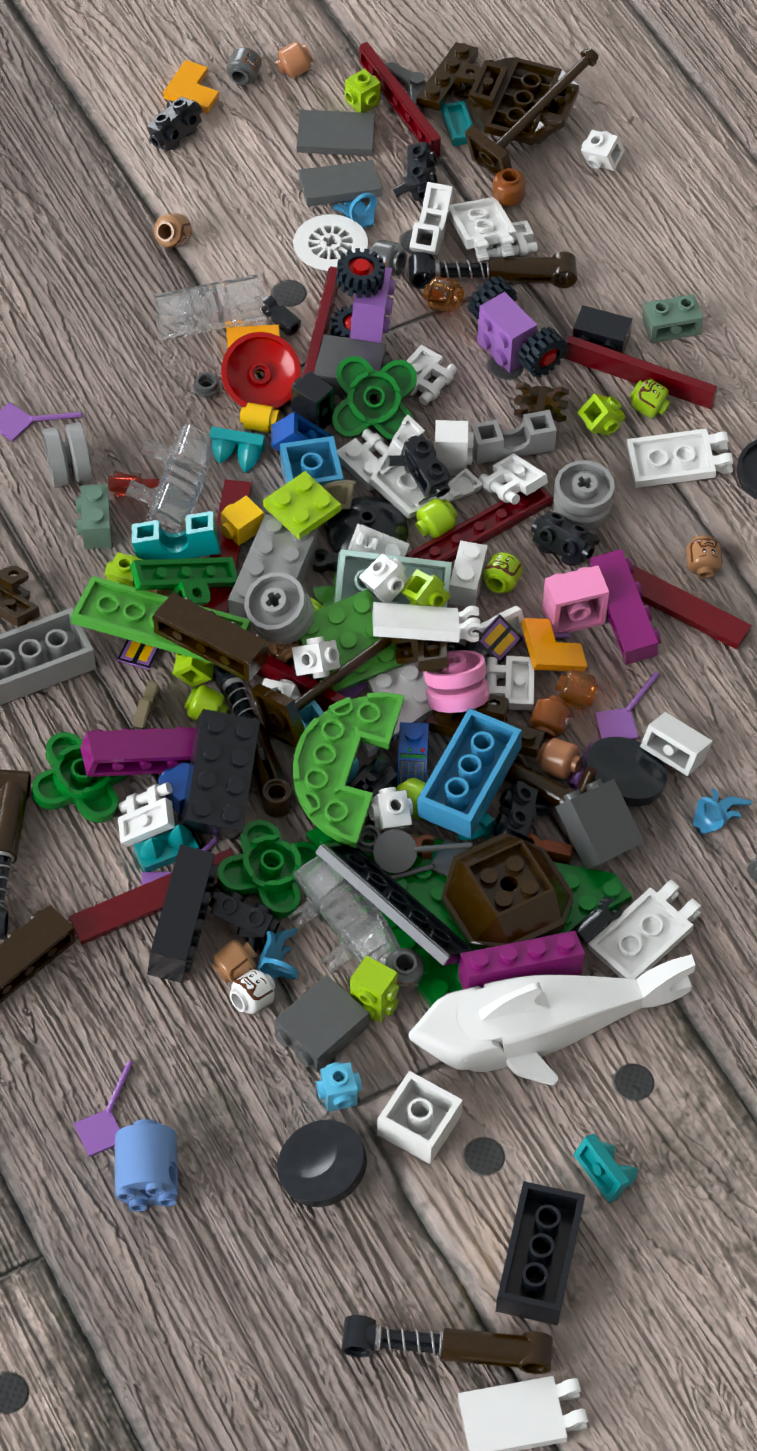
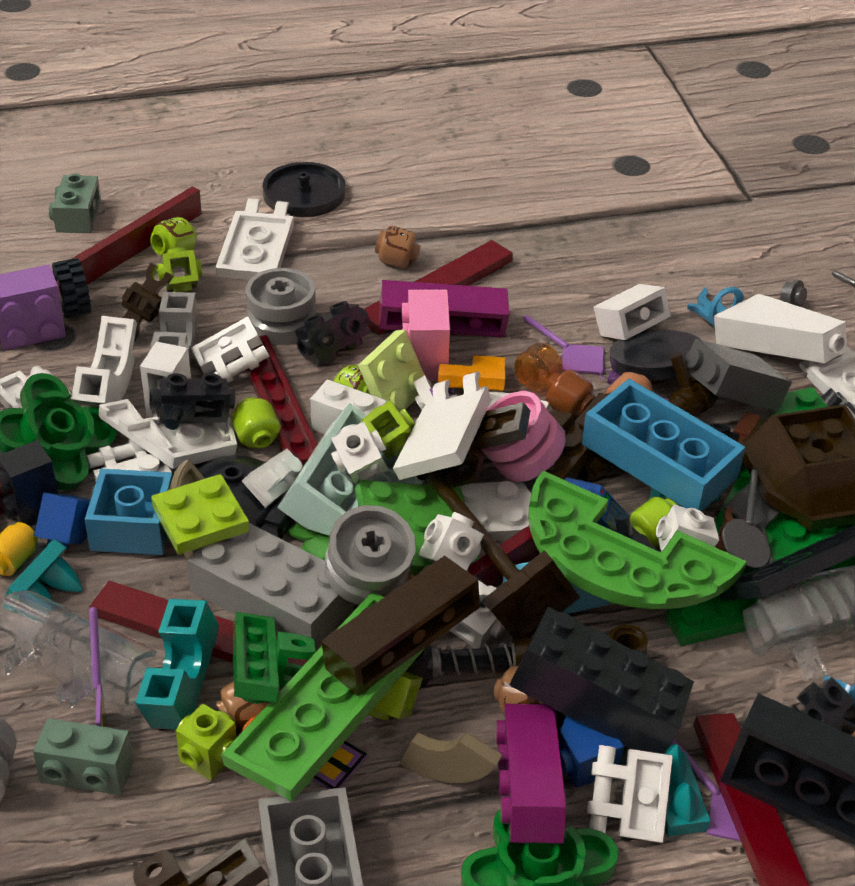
camera: 75 degrees left, 15 degrees down
(120, 481) = (33, 716): clear red cone -> none
(134, 511) = (96, 675): none -> medium lavender piece
(204, 698) = (459, 696): lime head -> none
(241, 520) = (175, 581): yellow brick -> none
(266, 868) = (732, 674): green plant -> none
(430, 405) = (112, 365): none -> white arch
(514, 585) = (393, 370): none -> yellowish green plate
(603, 328) = (60, 244): black brick -> none
(688, 854) = (780, 330): none -> white slope

